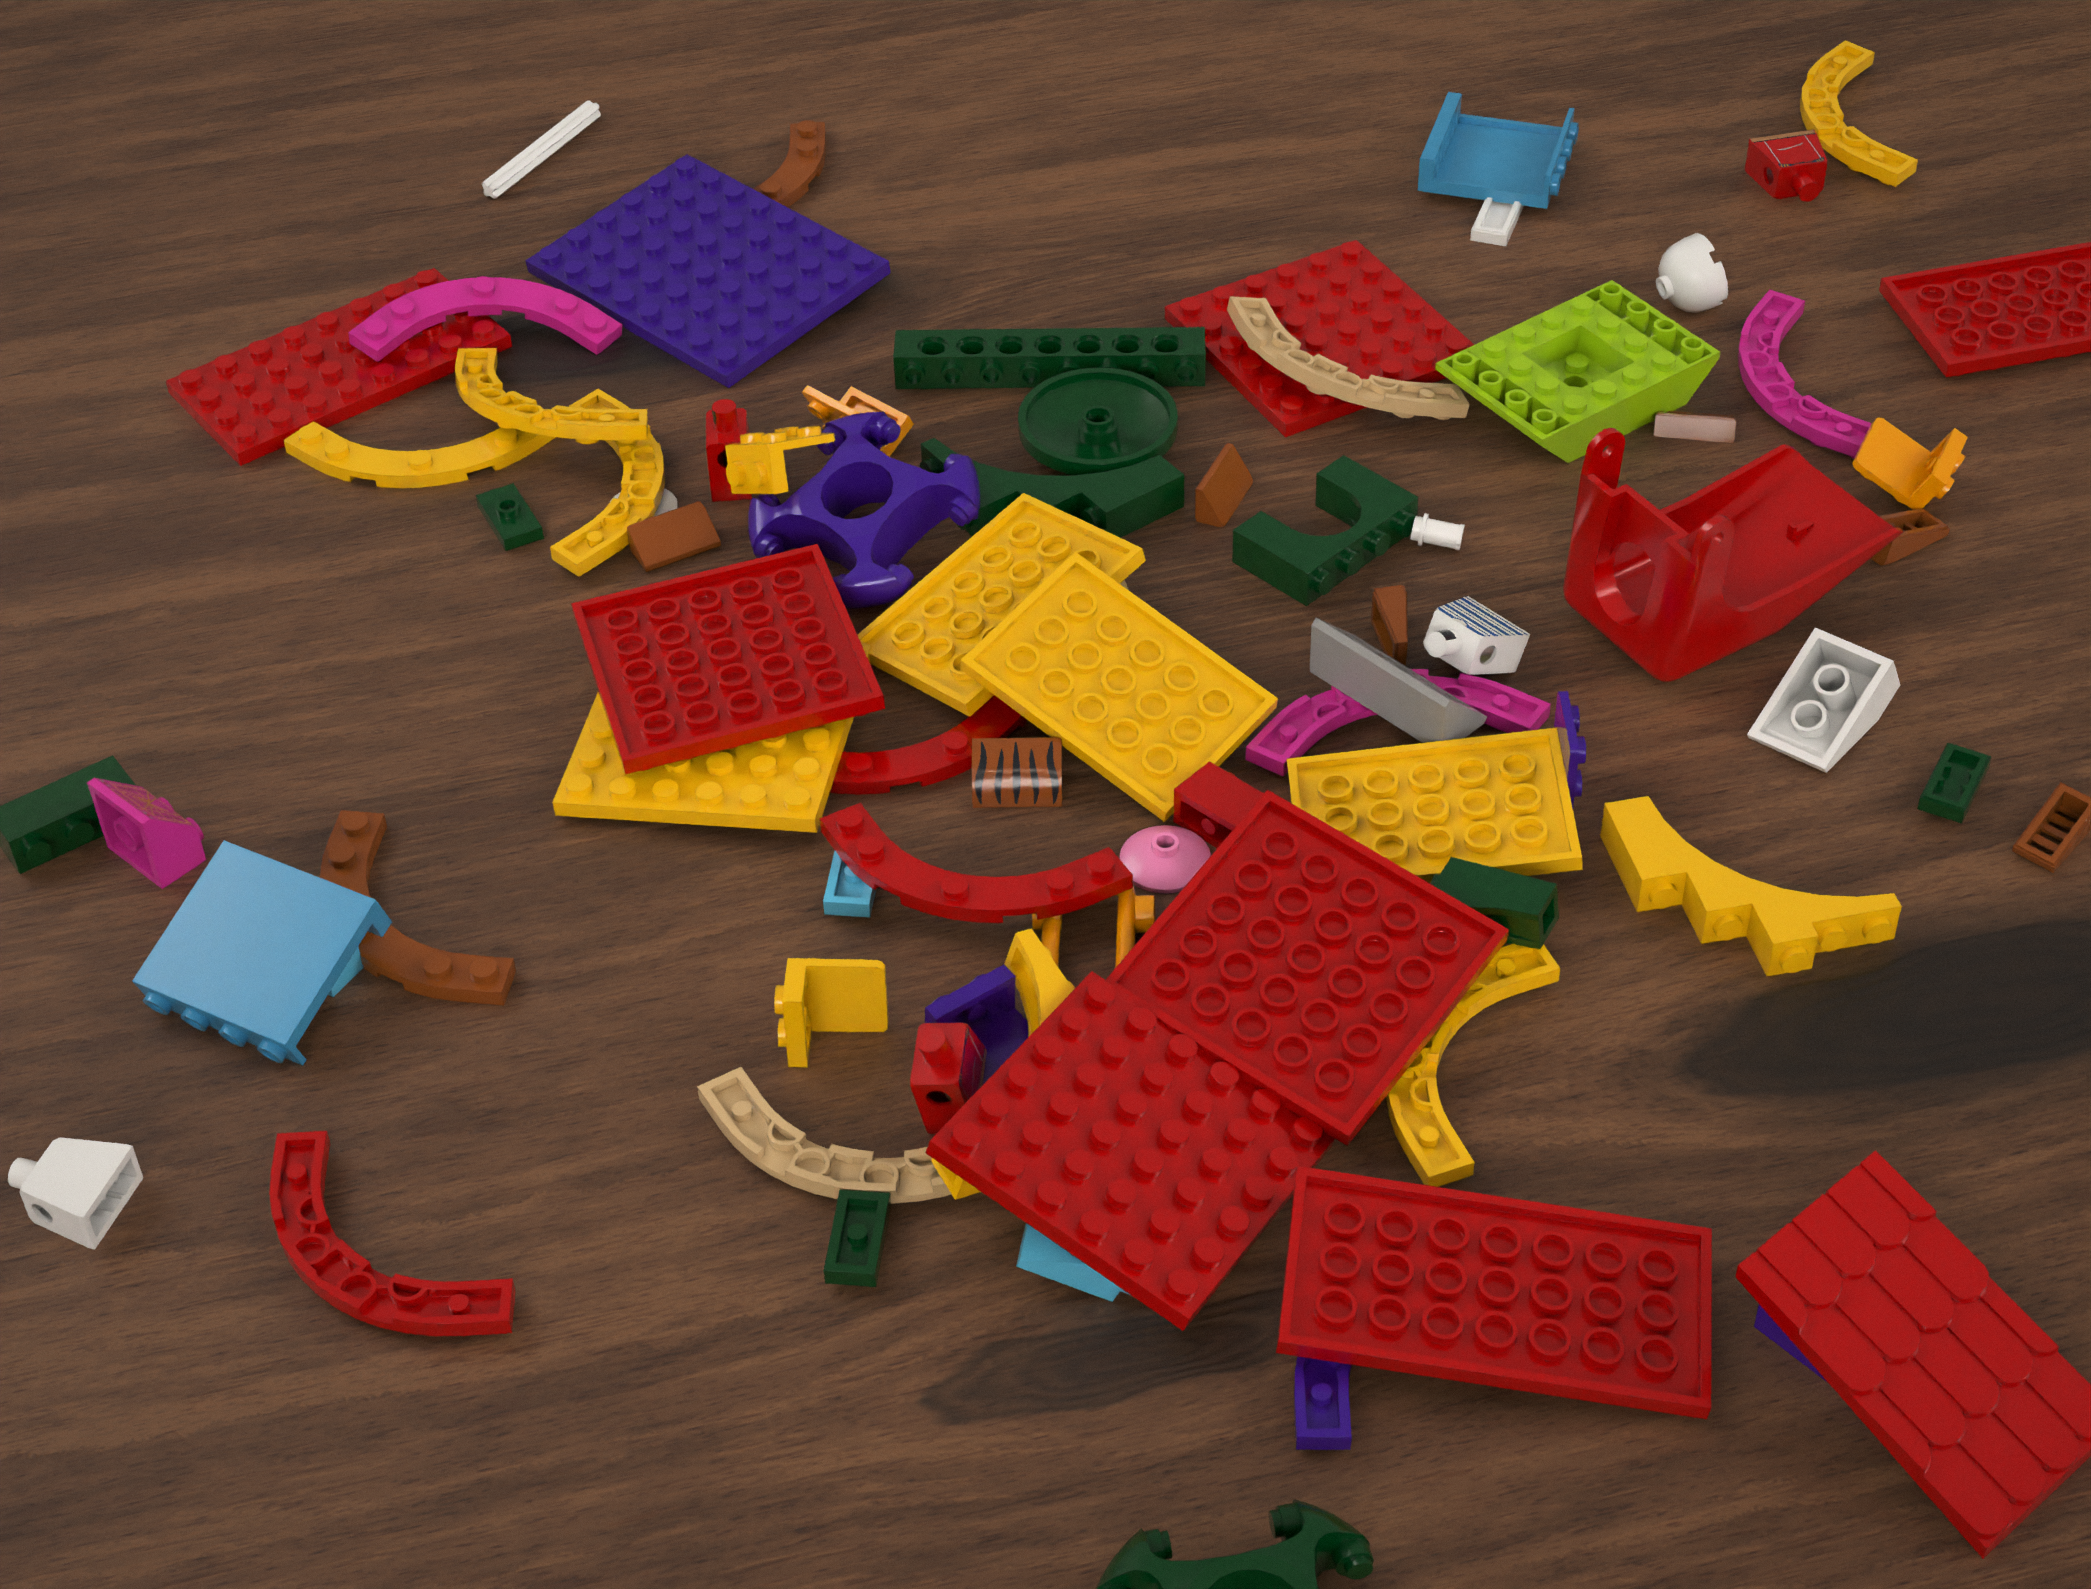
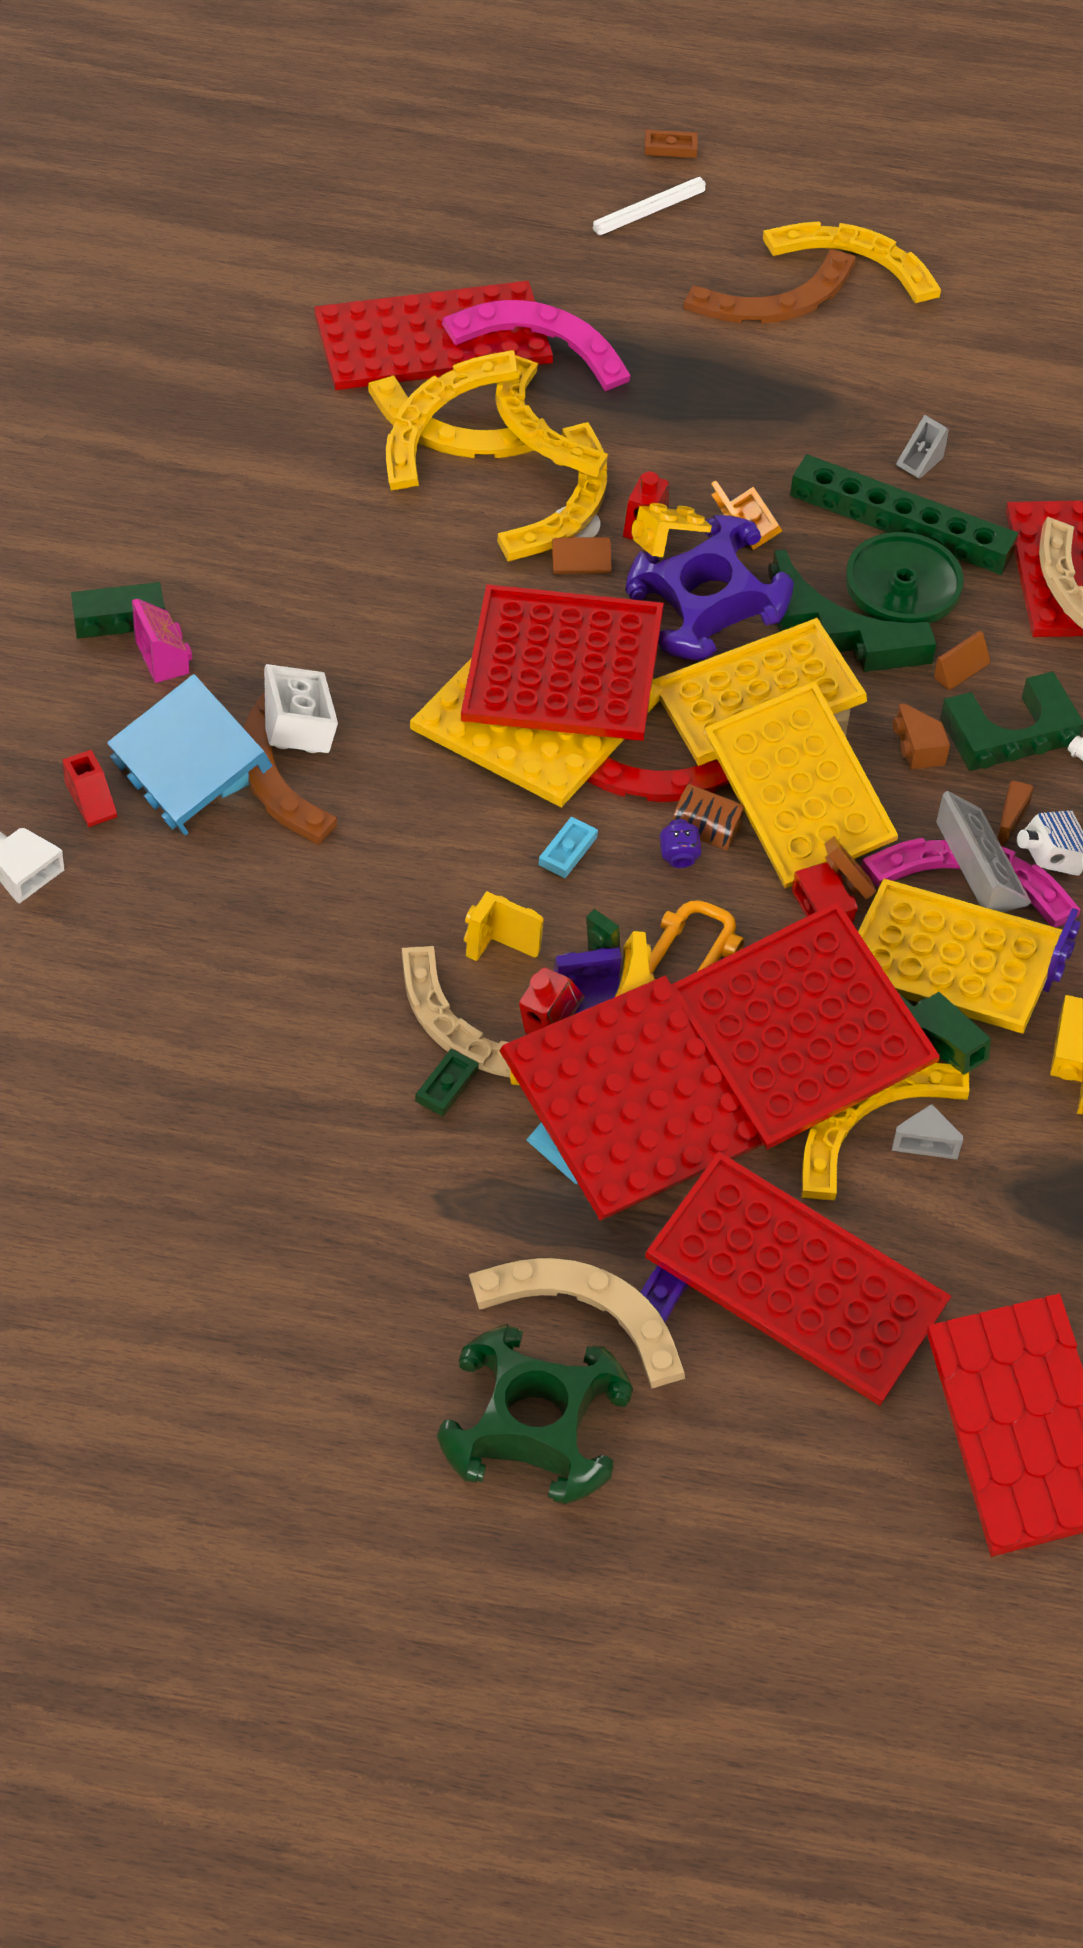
camera: 20 degrees right, 10 degrees up
(132, 1050) = (88, 788): none -> red slope
(348, 1279) = (147, 982): red plate -> none
(377, 426) = (428, 399): none -> yellow plate
(392, 843) = (298, 709): none -> white slope
(509, 517) = (485, 498): dark green plate -> none
(532, 80) = (671, 143): none -> dark orange plate
(708, 269) = (711, 351): dark purple plate -> none
(825, 106) = (862, 241): none -> yellow plate
(966, 896) = (629, 892): red plate -> none
(968, 954) = (601, 932): none -> dark green plate
(1001, 816) = (680, 843): none -> dark purple head
(1031, 280) = (924, 447): none -> light grey slope
(1164, 858) = (763, 921): bright pink dish -> none
(1225, 752) = (856, 877): none -> dark orange plate
(1228, 586) = (921, 738): none -> dark orange slope
(1234, 1426) = (595, 1288): none -> tan plate
(1545, 1041) = (928, 1135): none -> light grey slope

